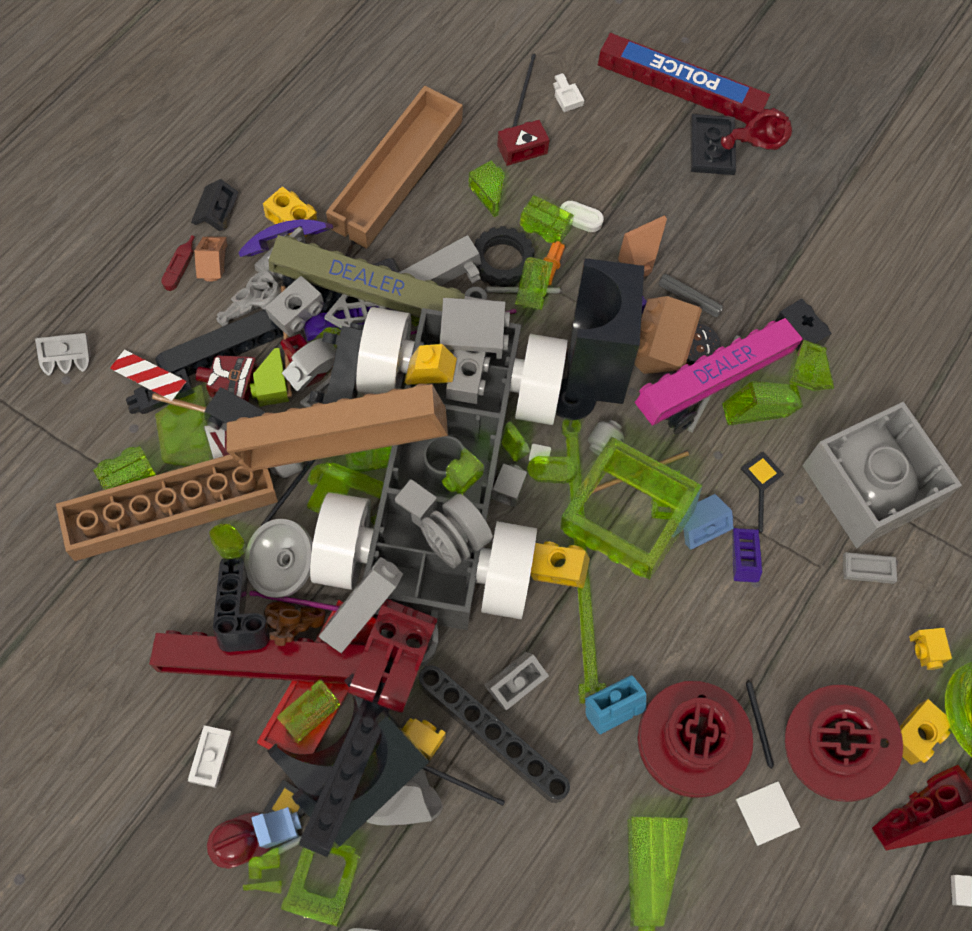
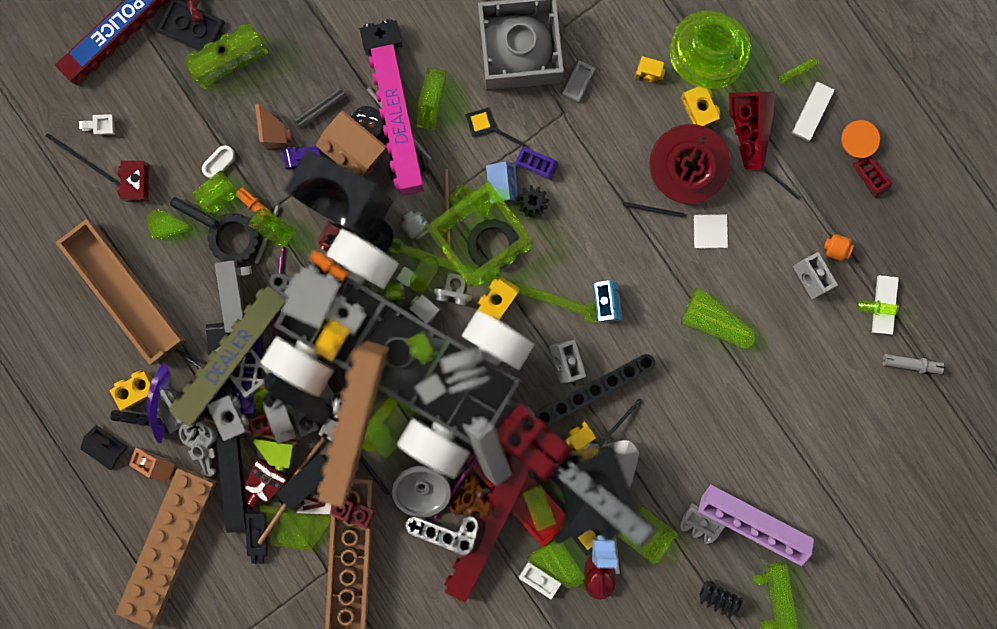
camera: 65 degrees left, 20 degrees up
(63, 350) = (193, 598): light grey plate -> none
(117, 302) = (166, 547): none -> medium nougat brick
(124, 469) = (312, 580): clear neon green brick -> none
(148, 375) = (239, 542): sticker -> none
(177, 265) = (145, 490): dark red piece -> none
(225, 481) = (353, 513): none -> dark red slope
(227, 541) = (393, 523): clear neon green tile -> none
(240, 772) = (557, 563): none -> clear neon green slope
(257, 216) = (128, 417): none -> black axle
(257, 864) = (624, 573): clear neon green piece -> none
(514, 207) = (194, 213): none -> black axle
(518, 337) = (328, 265): none -> orange pin
(541, 519) = (459, 297): none -> light grey bracket
(633, 514) = (479, 229): none -> black tyre
(669, 747) = (634, 276): dark red wheel -> none
(698, 554) = (539, 203): none -> black gear
(700, 179) = (225, 55): none -> clear neon green brick
(811, 368) = (418, 49): clear neon green slope -> none
(879, 886) = (781, 182): none -> black axle

